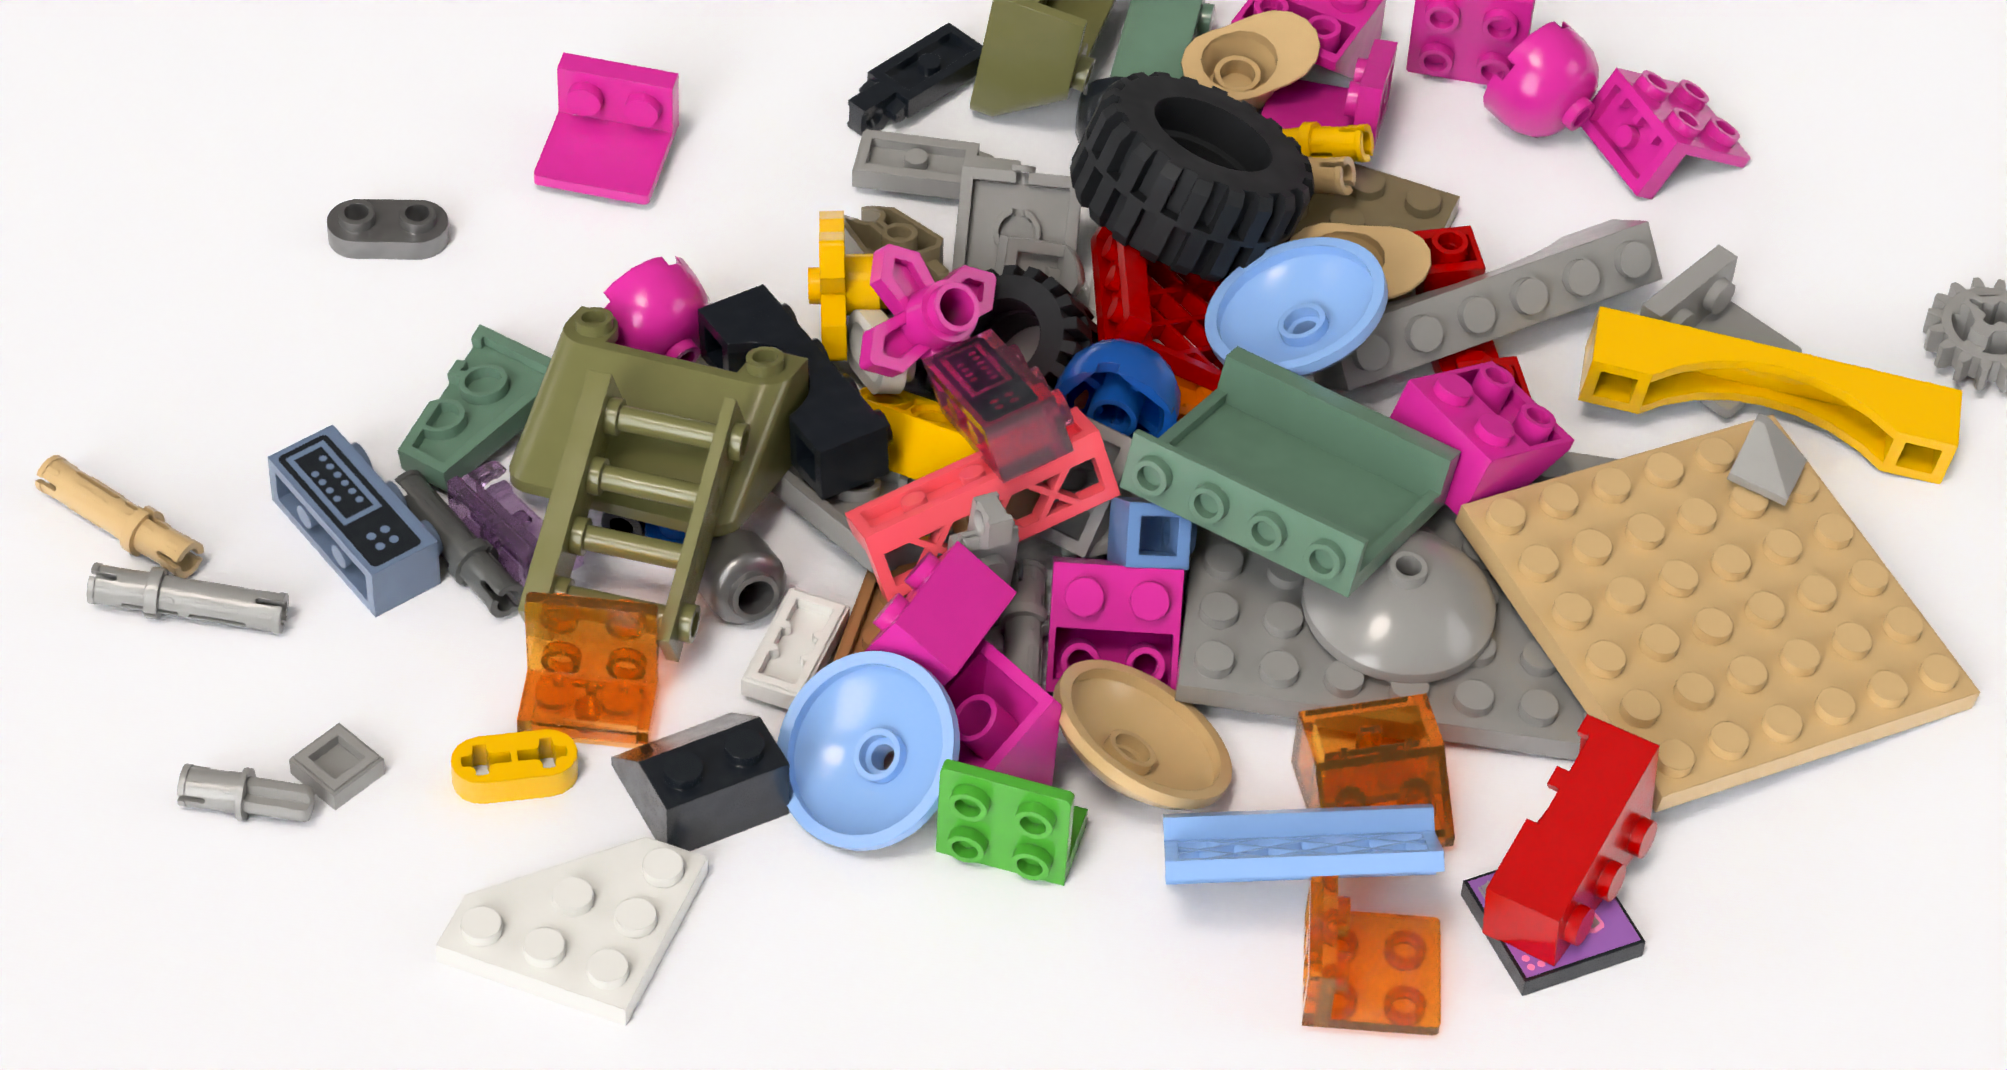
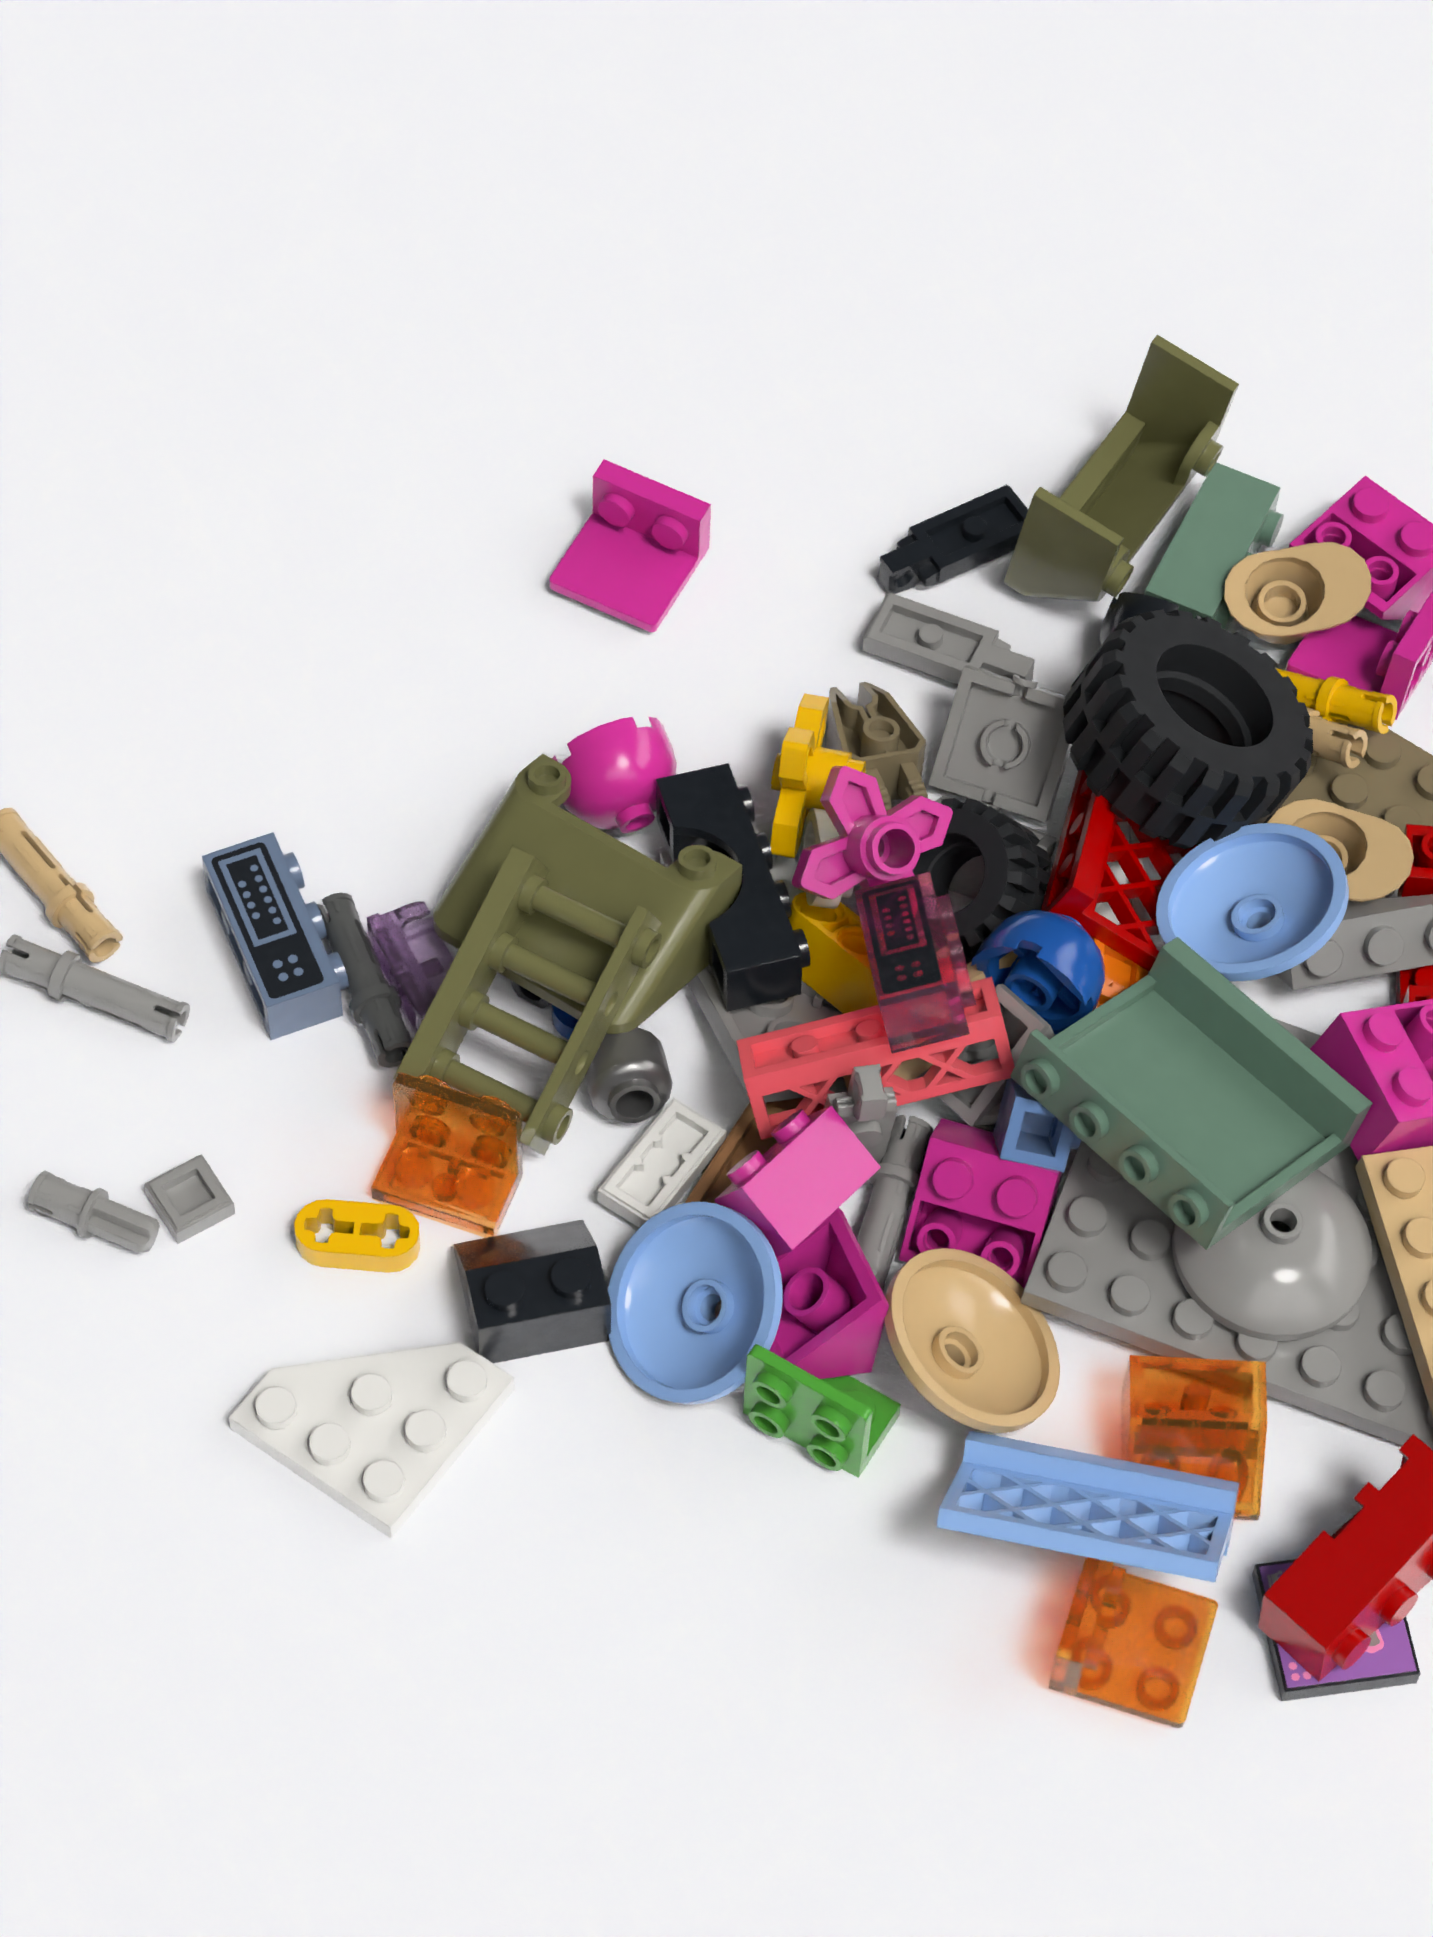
camera: 15 degrees right, 10 degrees up
(388, 229) = (391, 612): flat silver plate -> none
(478, 410) = (423, 836): sand green wing -> none
(1049, 257) = (1015, 789): light grey plate -> none

